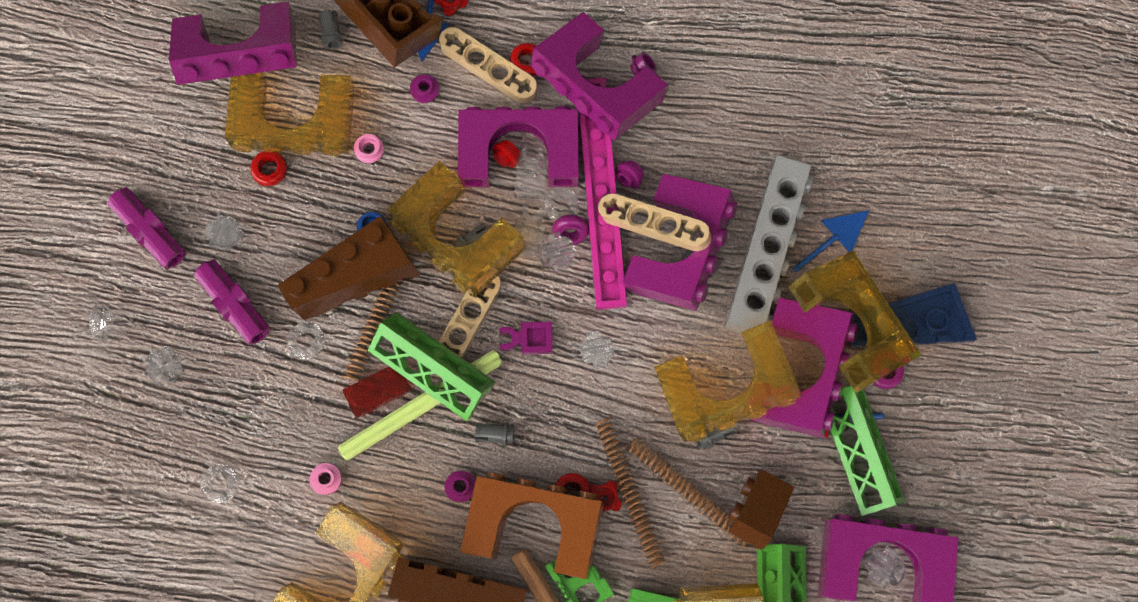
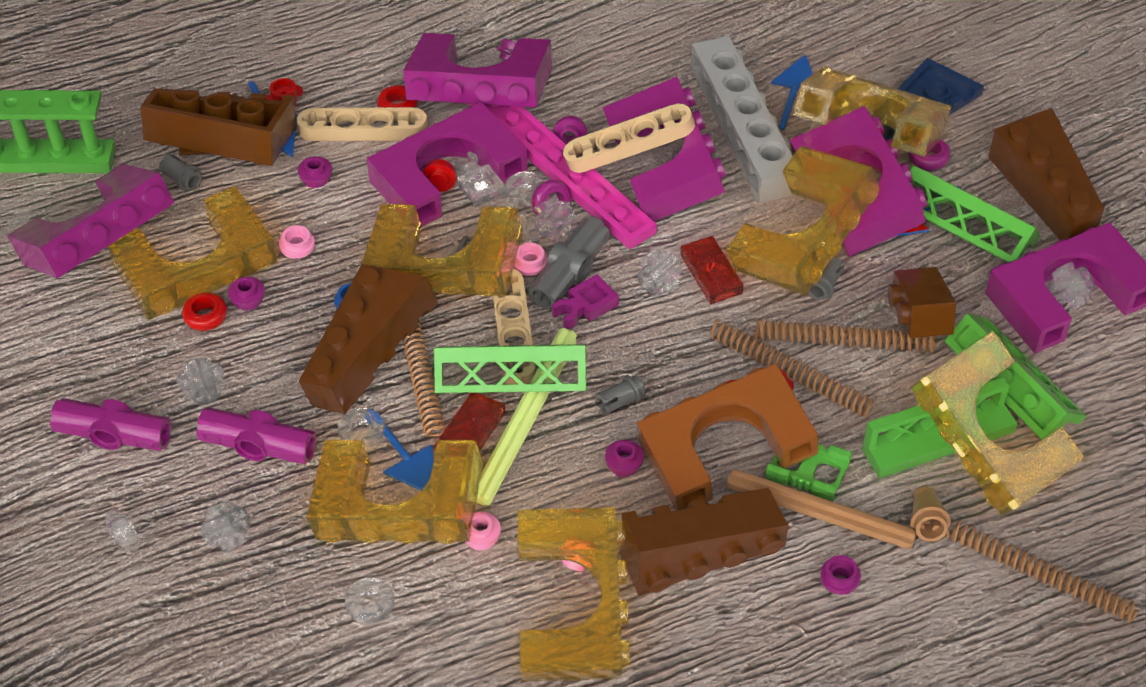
camera: 30 degrees left, 25 degrees down
(245, 403) = (437, 513): none -> clear yellow arch
(306, 178) = (246, 293): none -> magenta plate
(321, 396) = (414, 469): none -> blue piece
(518, 264) = (530, 259): none -> bright pink plate
(541, 296) = (569, 262): none -> dark grey piece
(639, 367) = (711, 270): none -> clear red plate
(955, 454) = (1047, 173): none -> reddish brown wedge

